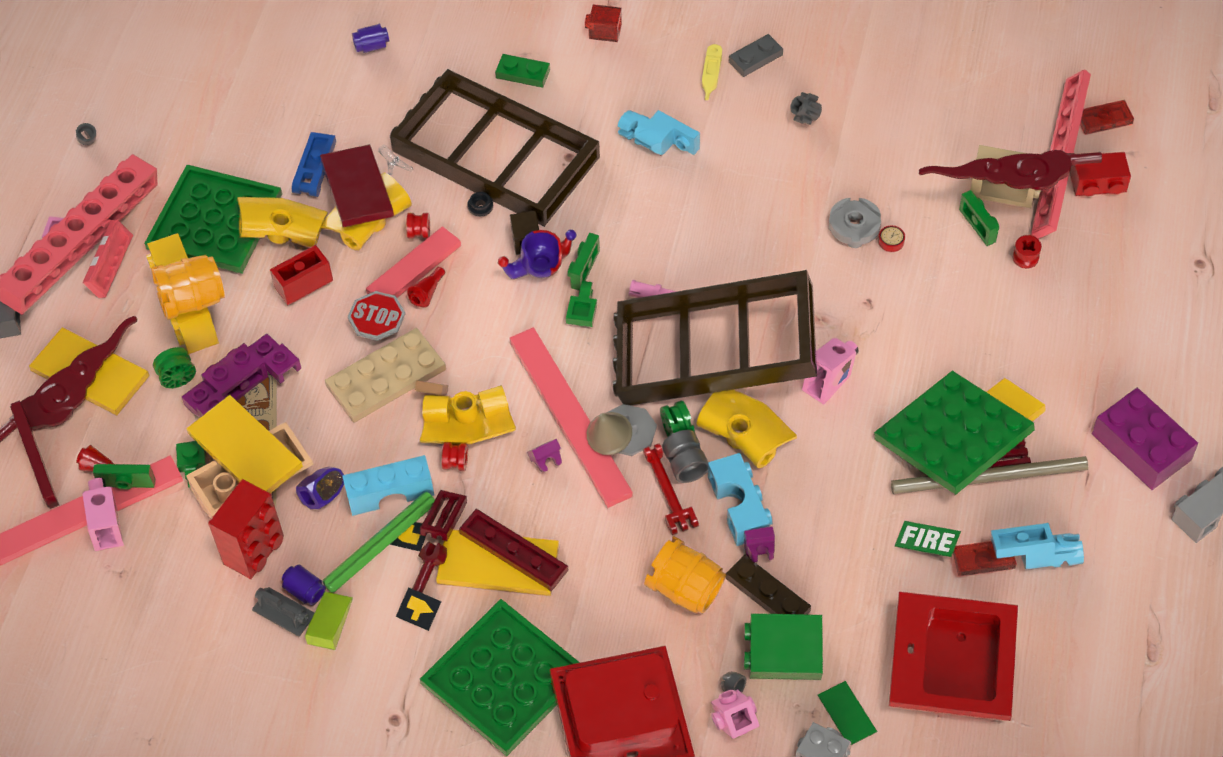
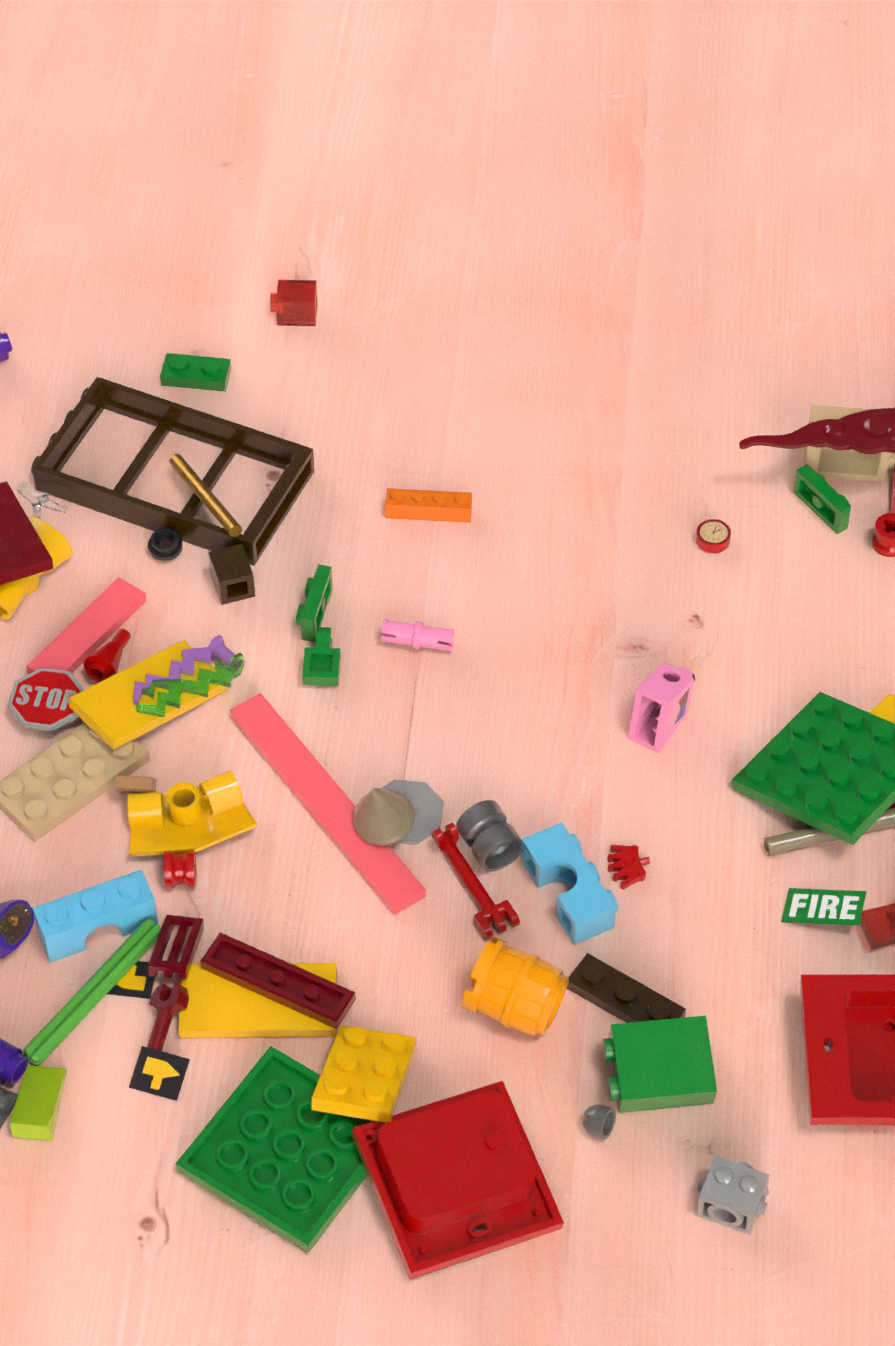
camera: 10 degrees left, 5 degrees down
(418, 225) = (86, 578): red wheel -> none
(451, 319) = (110, 706): none -> yellow tile
(507, 311) = (223, 676): none -> piece
(514, 170) = (205, 495): none -> pearl gold bar
(540, 255) = (256, 600): dark purple piece -> none
(547, 450) = (306, 847): magenta tile -> none
(565, 628) = (364, 1073): none -> yellow plate
(658, 132) = (389, 432): medium azure plate -> none
(676, 418) = (469, 788): green wheel -> none
(680, 193) = (428, 505): none -> orange piece
(705, 298) = (490, 630): dark brown window -> none
(711, 69) = (444, 348): light yellow piece -> none
(734, 713) = (608, 1158): bright pink brick -> none
(755, 55) = (499, 326): dark grey plate -> none
(759, 542) = (605, 935): magenta tile -> none
(761, 426) = (580, 789): yellow panel -> none
(785, 489) = (627, 864): none -> red piece
(806, 108) = (576, 384): dark grey gear -> none
(847, 713) = (755, 1141): green sticker -> none
(850, 233) = (659, 534): light grey plate -> none

